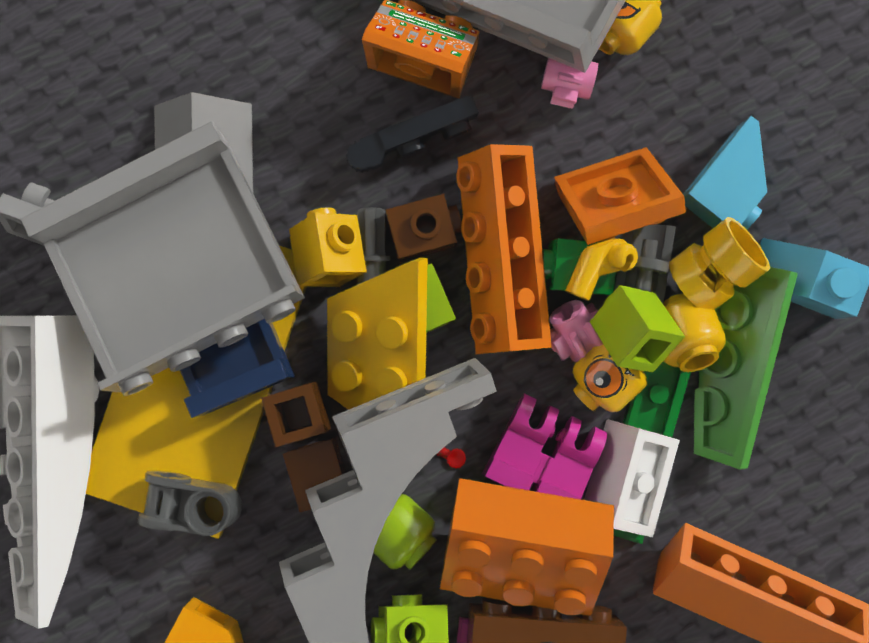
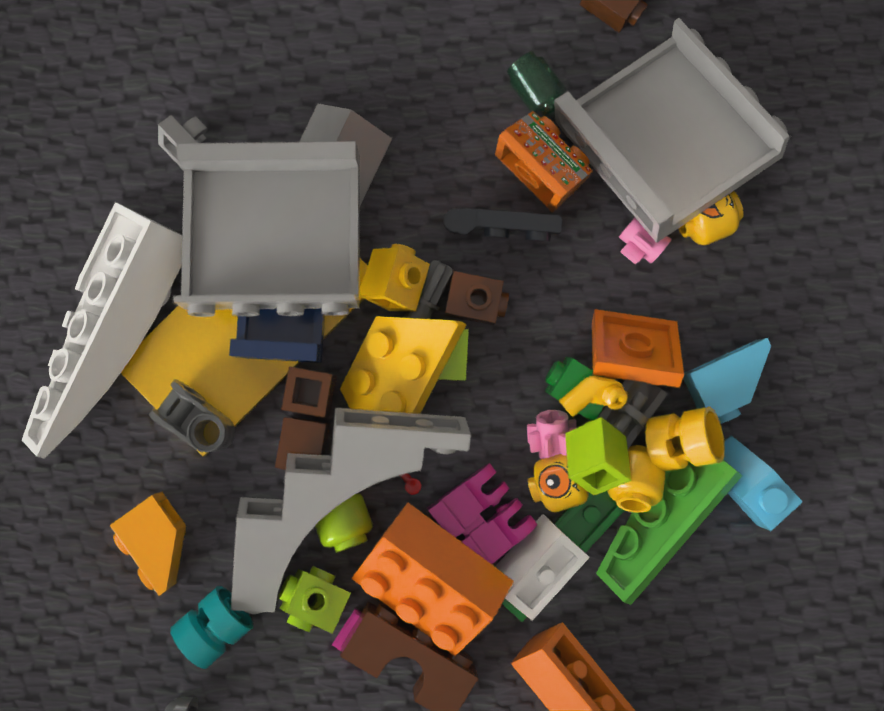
camera: 25 degrees right, 0 degrees up
(503, 249) = (528, 346): orange brick -> none

